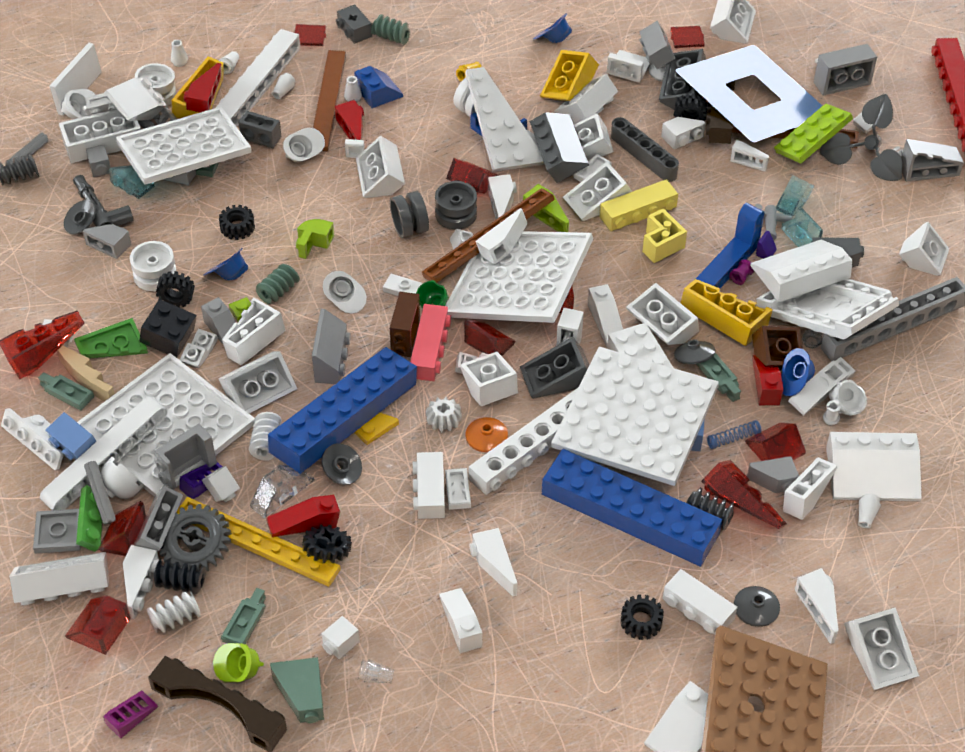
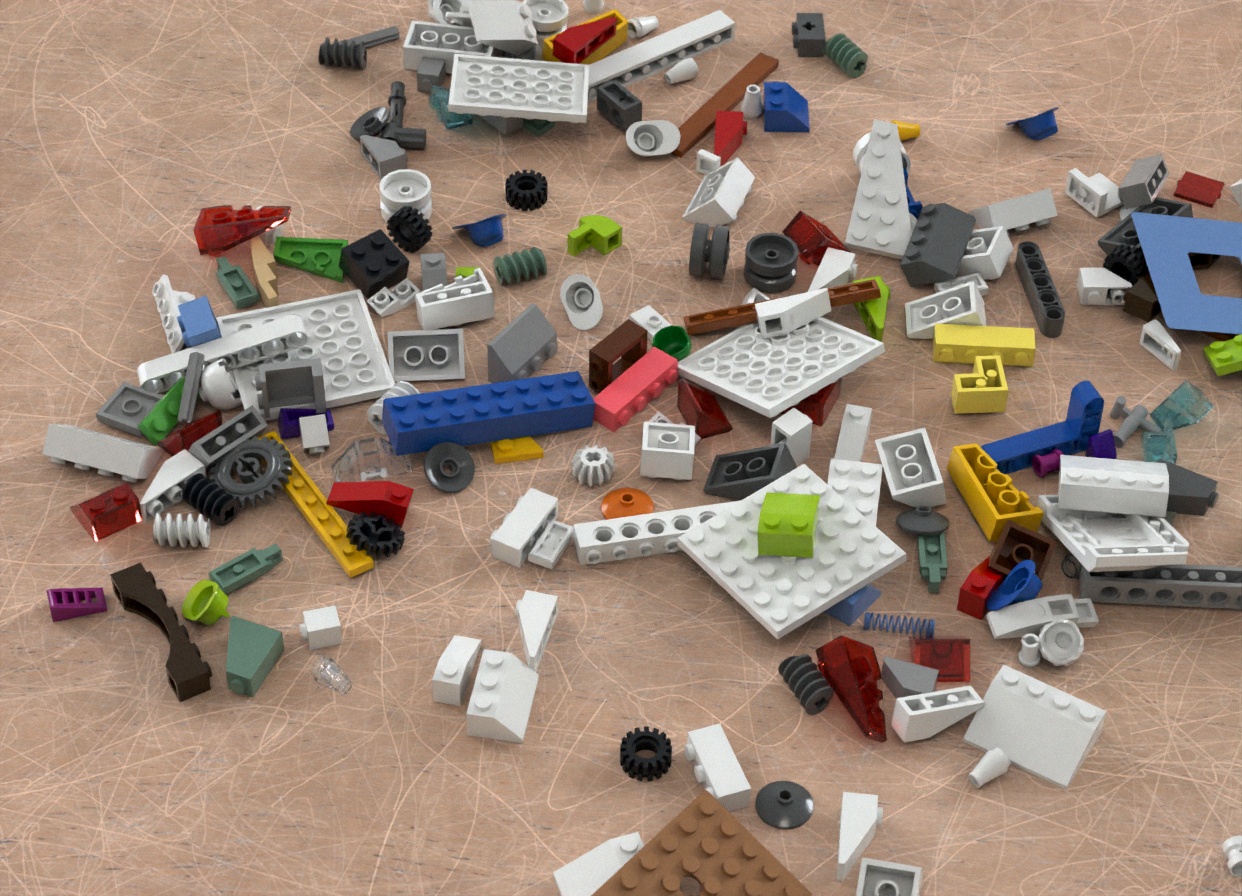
camera: 30 degrees right, 5 degrees down
(311, 34) = (755, 30): clear red piece -> none
(511, 626) = (501, 697): none -> white slope
(569, 75) = (1012, 176): yellow slope -> none
(628, 396) = (788, 525): none -> lime slope
(631, 507) = (721, 644): blue brick -> none

